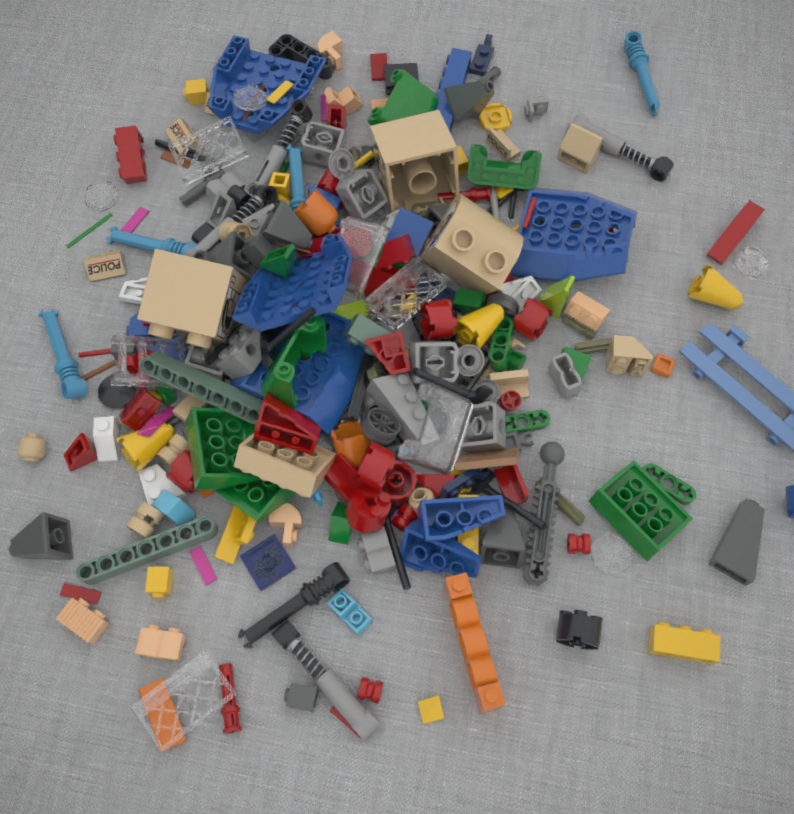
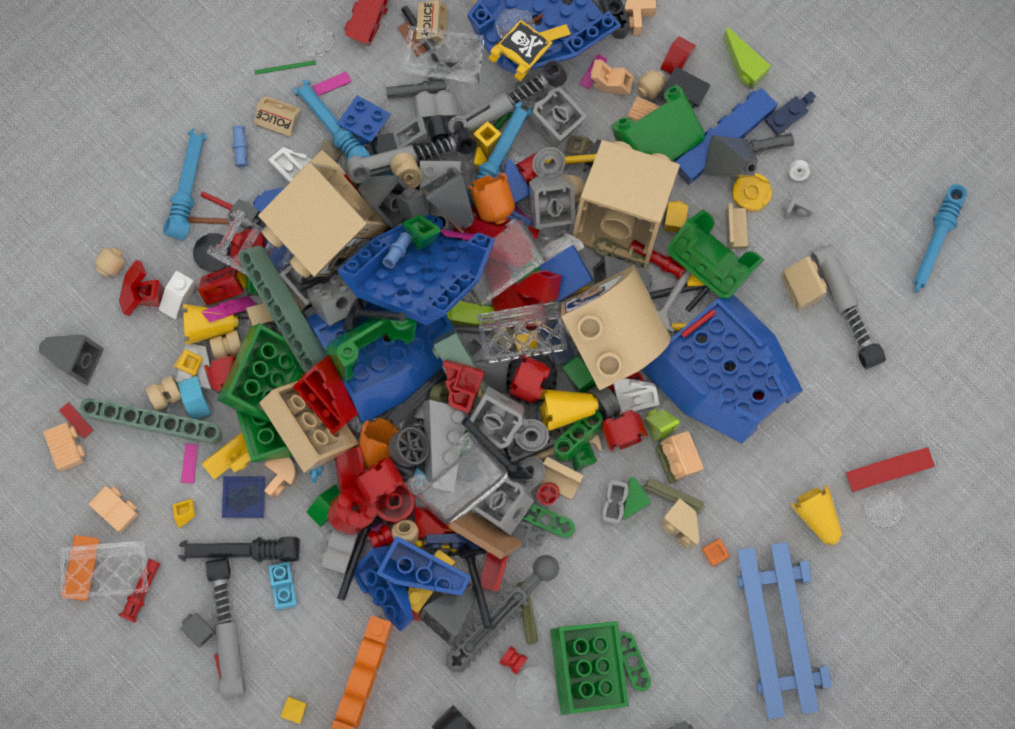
camera: 30 degrees right, 10 degrees up
(65, 464) = (129, 298): none -> red tile
(89, 301) = (240, 146): none -> medium blue pin
(150, 483) = (188, 362): none -> yellow slope
(159, 582) = (144, 455): yellow brick -> none
(176, 226) = (363, 119): none -> blue hinge
(224, 607) = (183, 512): none -> yellow slope
(266, 104) = (522, 46): none -> flag
(269, 283) = (397, 250): none -> medium blue pin
(337, 116) = (590, 97): red slope -> none
(370, 690) = (255, 661): red wheel -> none
(374, 89) = (651, 84): none -> tan head
(428, 41) = (748, 64): none -> lime slope
(517, 85) = (799, 170): none -> white tile

